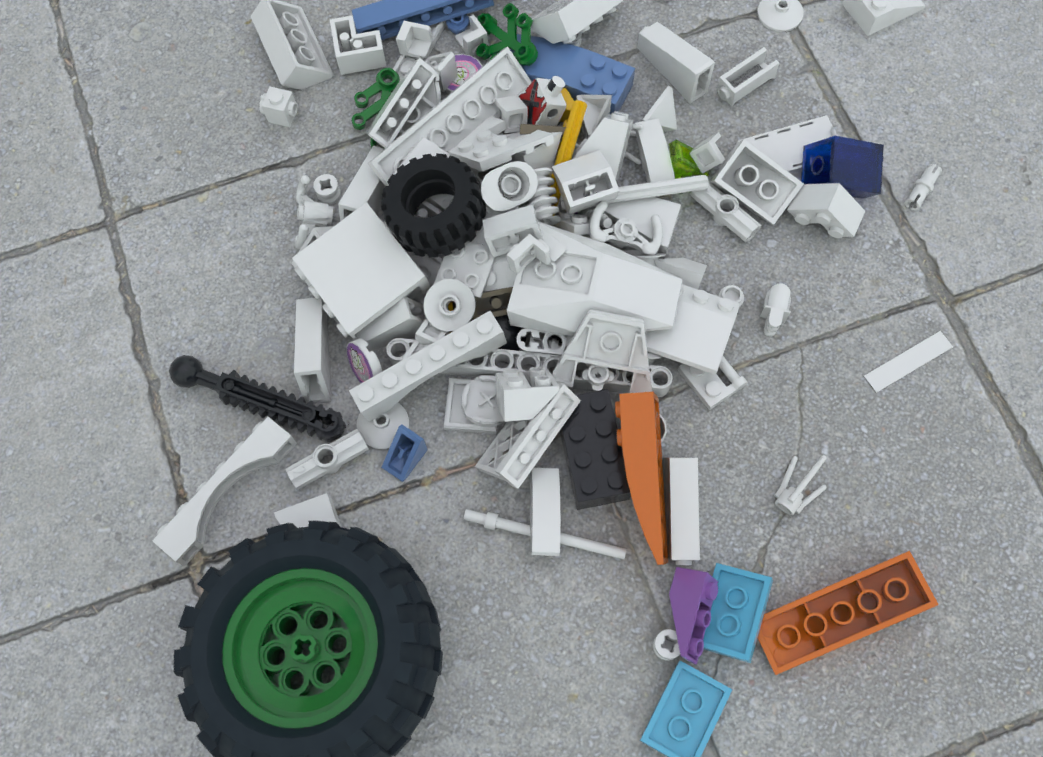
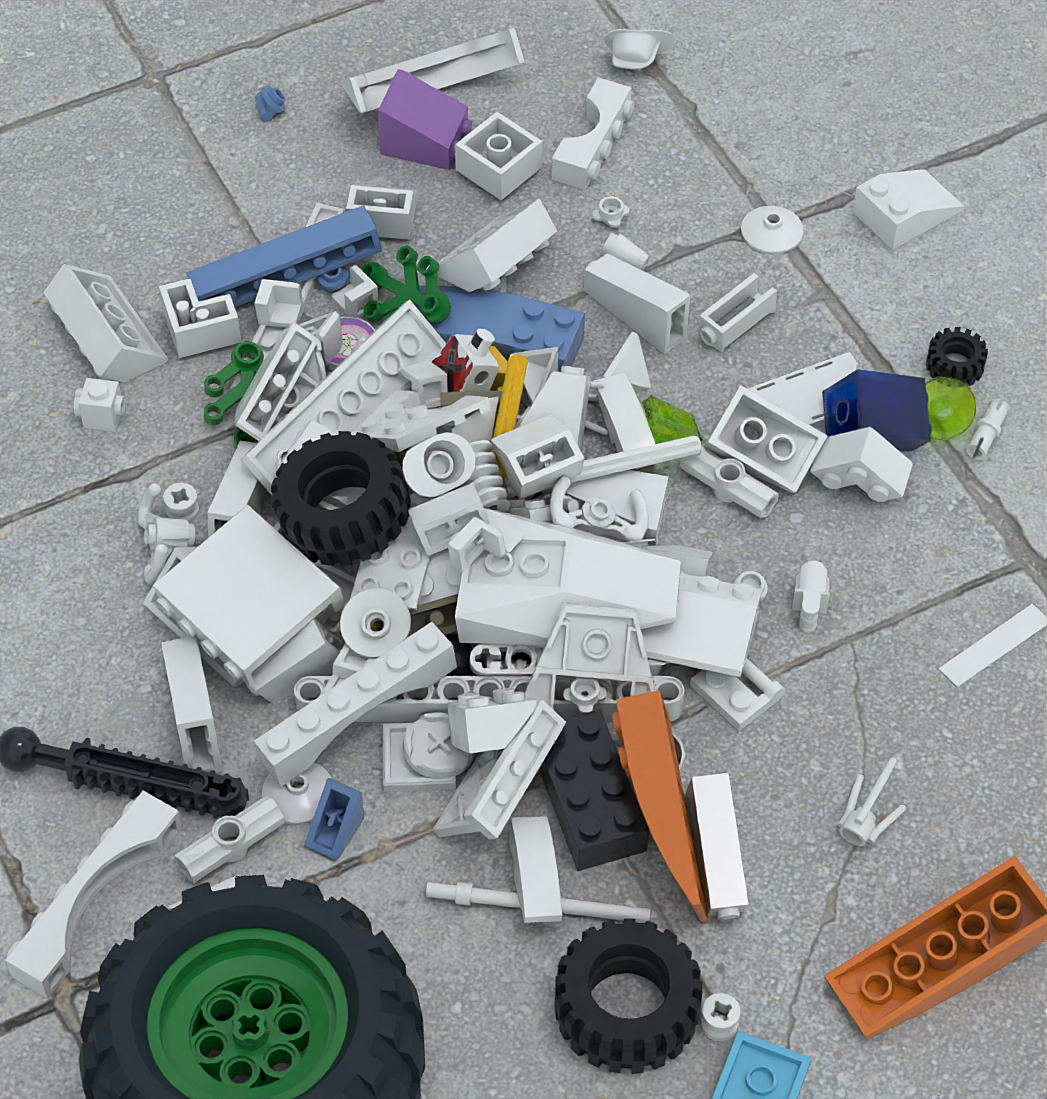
camera: 10 degrees left, 15 degrees down
(363, 363) = (262, 706): tile -> none
(624, 591) = (636, 951): none -> black tyre
(671, 21) = (626, 251): none -> white cone
(691, 604) = (745, 956): medium lavender slope -> none
(707, 153) = (696, 411): white panel -> none
(737, 612) = (800, 966): medium azure plate -> none
(901, 137) = (958, 343): none -> black tyre
(906, 164) = (951, 395): none -> clear neon green dish

